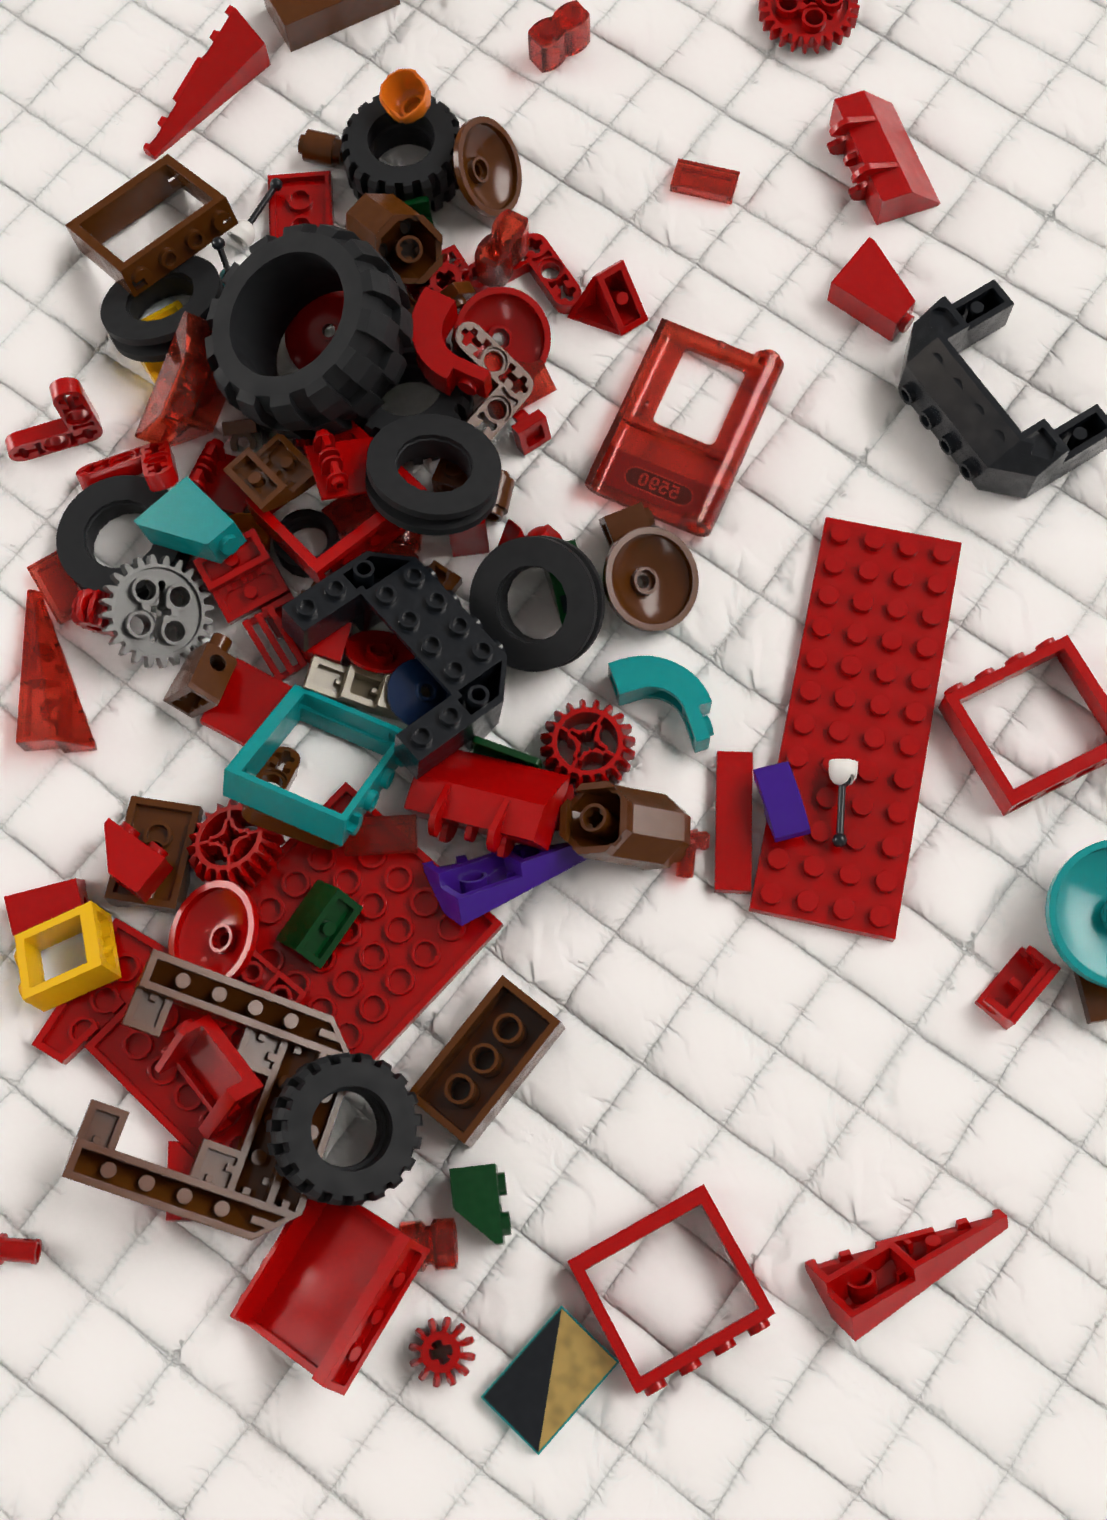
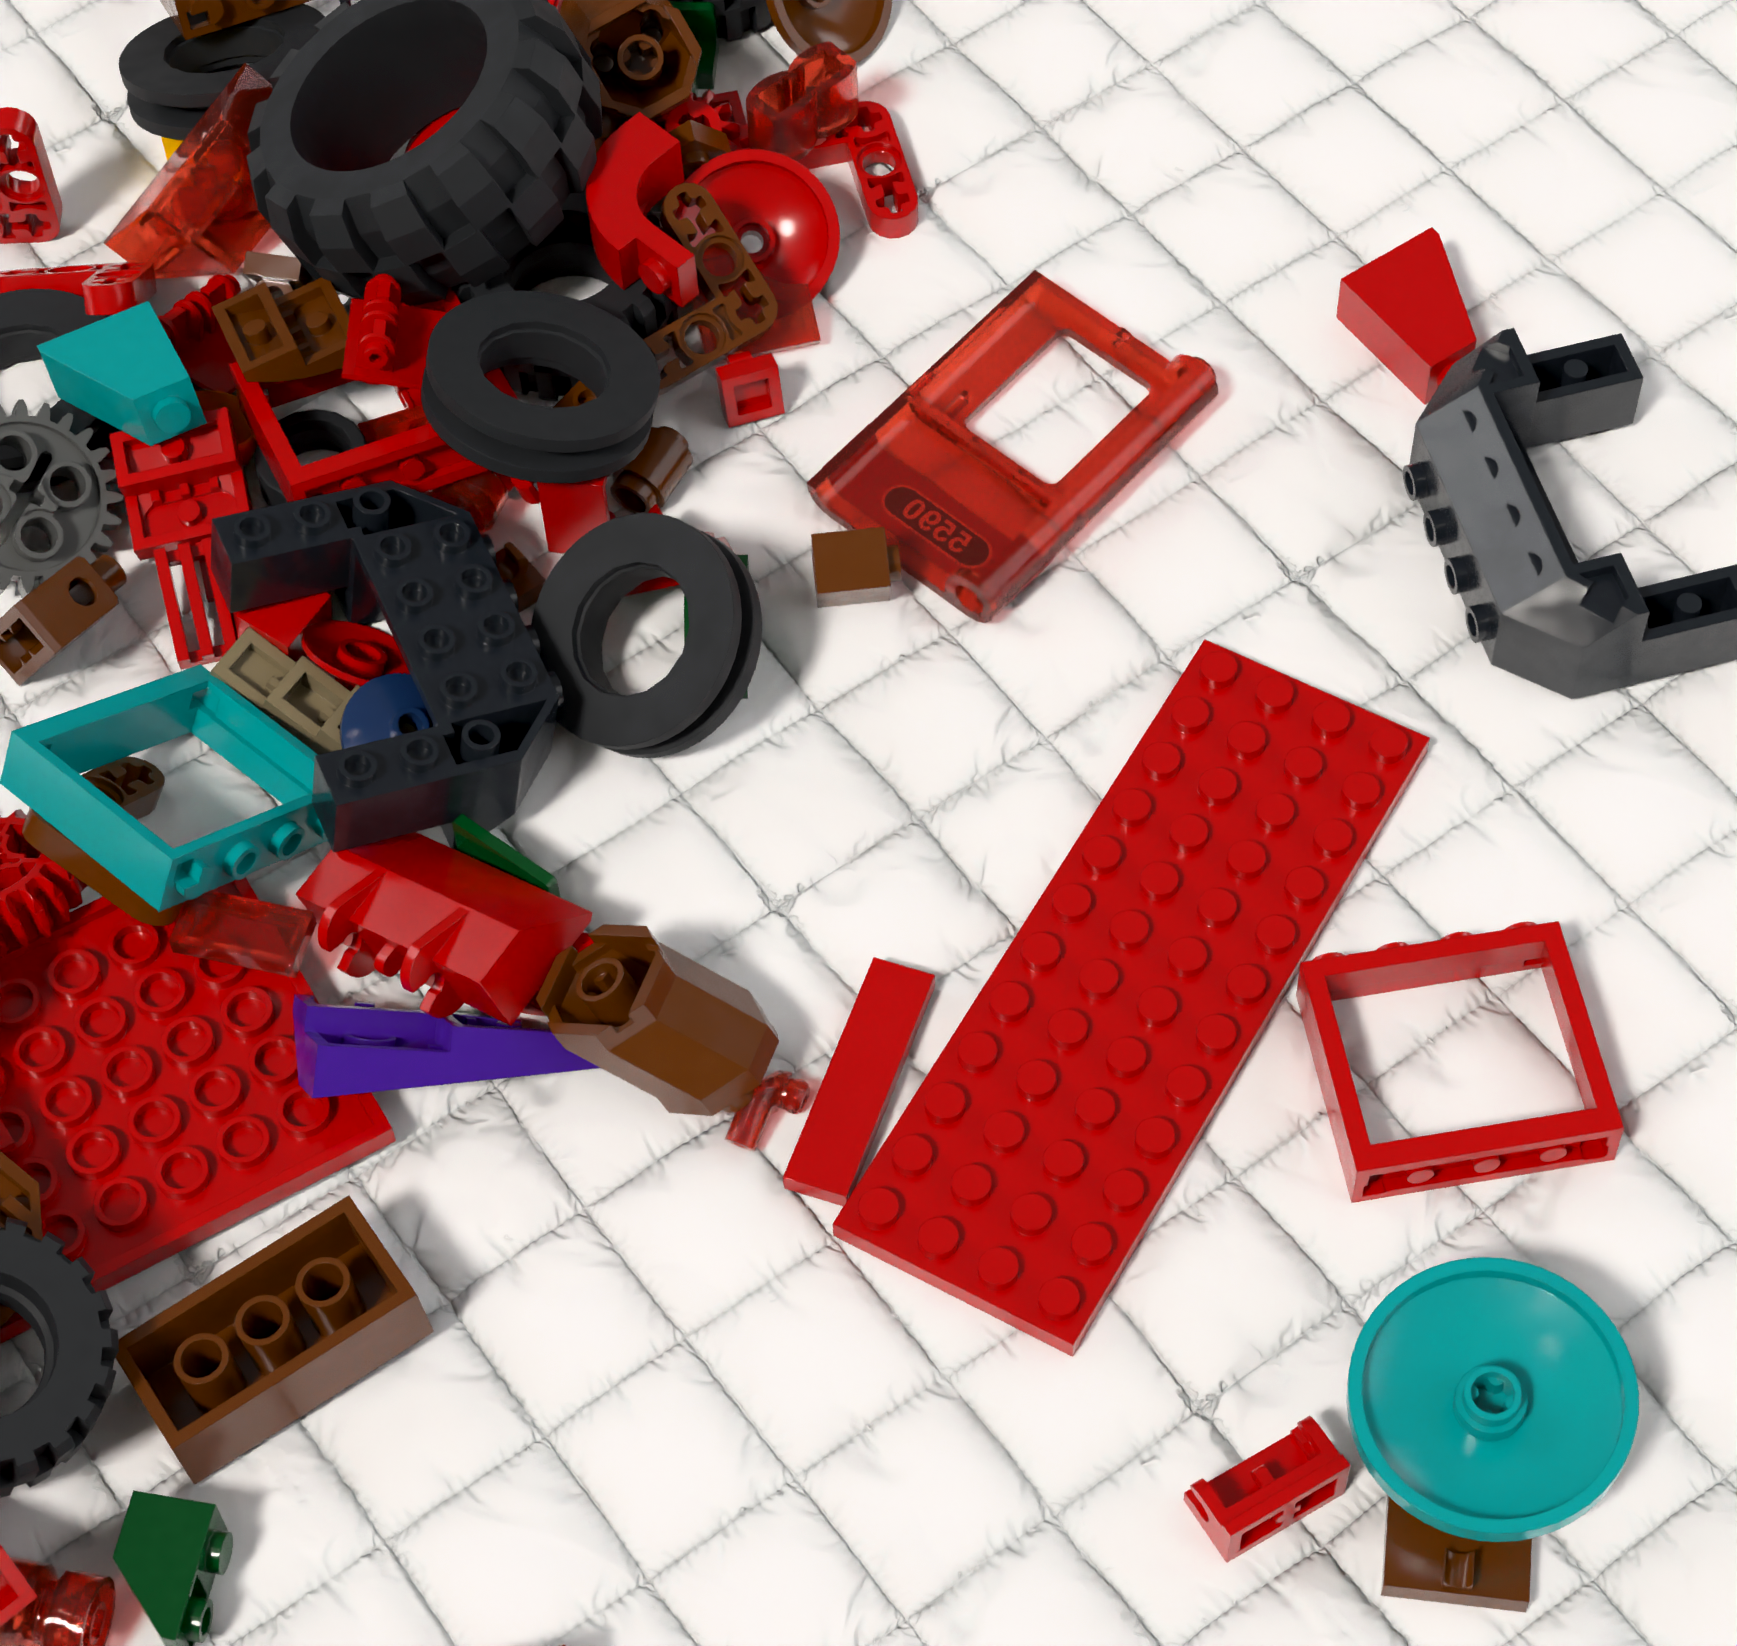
camera: 15 degrees right, 15 degrees down
(245, 703) = (104, 662): red slope -> none
(319, 923) = (84, 1040): dark green panel -> none
(599, 720) = (654, 869): red gear -> none
(610, 302) = (959, 228): red slope -> none
(667, 577) = (887, 633): reddish brown dish -> none
(667, 681) = (821, 819): teal arch -> none
(704, 181) = (1191, 93): clear red tile -> none
(781, 801) = (947, 1057): dark purple slope -> none
(842, 773) = (1073, 1039): hinge -> none
(879, 157) = (1505, 120): red piece -> none

